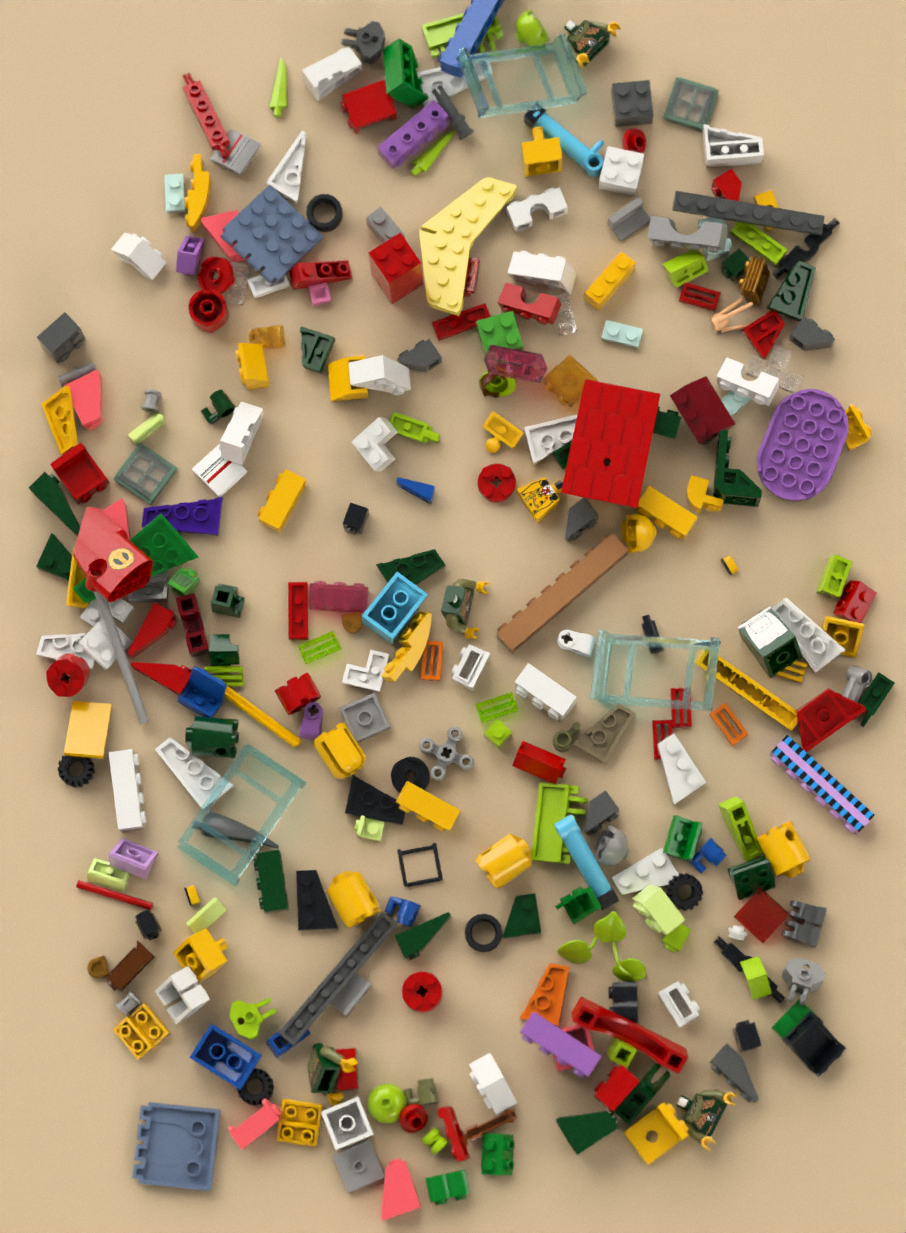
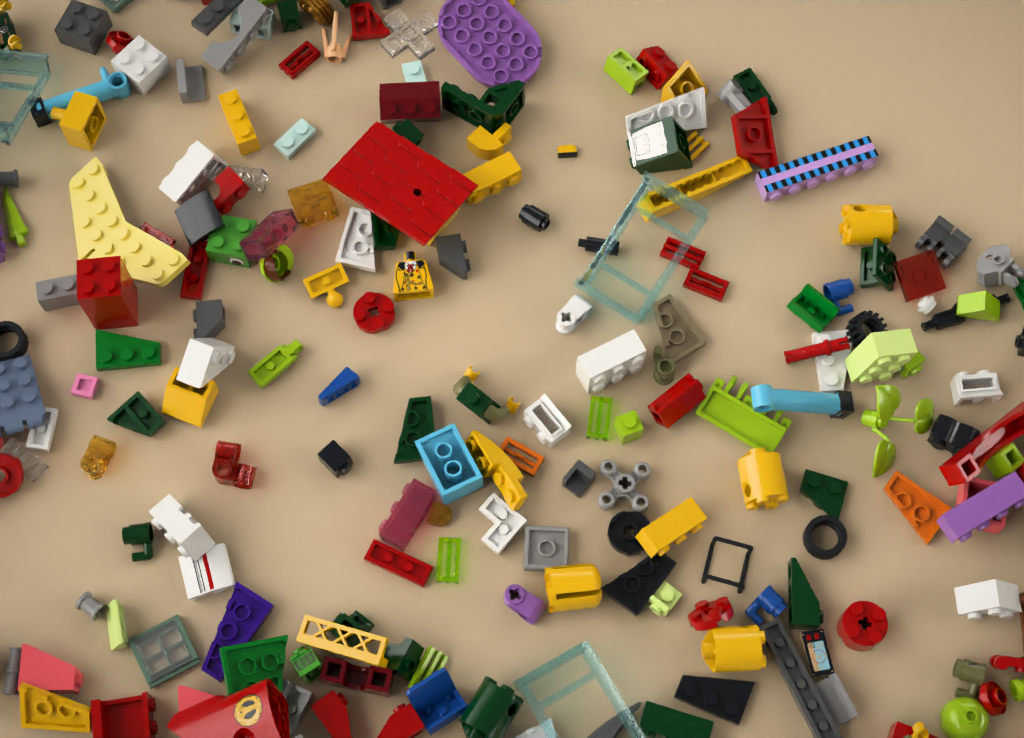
camera: 70 degrees left, 10 degrees down
(206, 601) = (343, 650): none -> yellow fence
(212, 301) = (32, 511): red brick -> none
(253, 365) = (118, 483): yellow slope -> none
(262, 718) = (494, 652): yellow axle -> none
(282, 500) = (275, 523): yellow brick -> none
(298, 693) = (489, 601): red brick -> none
(315, 273) = (60, 380): red slope -> none
(317, 435) = (227, 457): none -> clear red piece
(363, 307) = (125, 352): none -> green wing
(371, 443) = (266, 405): white brick -> none
(371, 867) = (709, 613): none -> red plate
(384, 967) = (817, 653): none -> tile
(435, 715) = (578, 478): none -> dark grey panel
(500, 300) = (199, 217): none -> slope
(550, 201) = (130, 136): white arch -> none
(562, 593) = (518, 305): medium nougat brick -> none
(580, 904) = (840, 428): green bracket -> none
(600, 810) = (751, 368): dark grey slope -> none
(611, 847) = (792, 374): light grey cylinder -> none
(638, 532) = (495, 210): yellow cylinder -> none
(648, 862) = (824, 348): none -> red pin
(649, 568) = (534, 217): none -> black brick
(679, 769) = (743, 280): white wing -> none
(685, 267) = (265, 55): lime hinge -> none
(725, 720) = (736, 222): orange tile -> none
(740, 827) = (823, 253): lime slope -> none
(760, 390) = (395, 63): white arch -> none

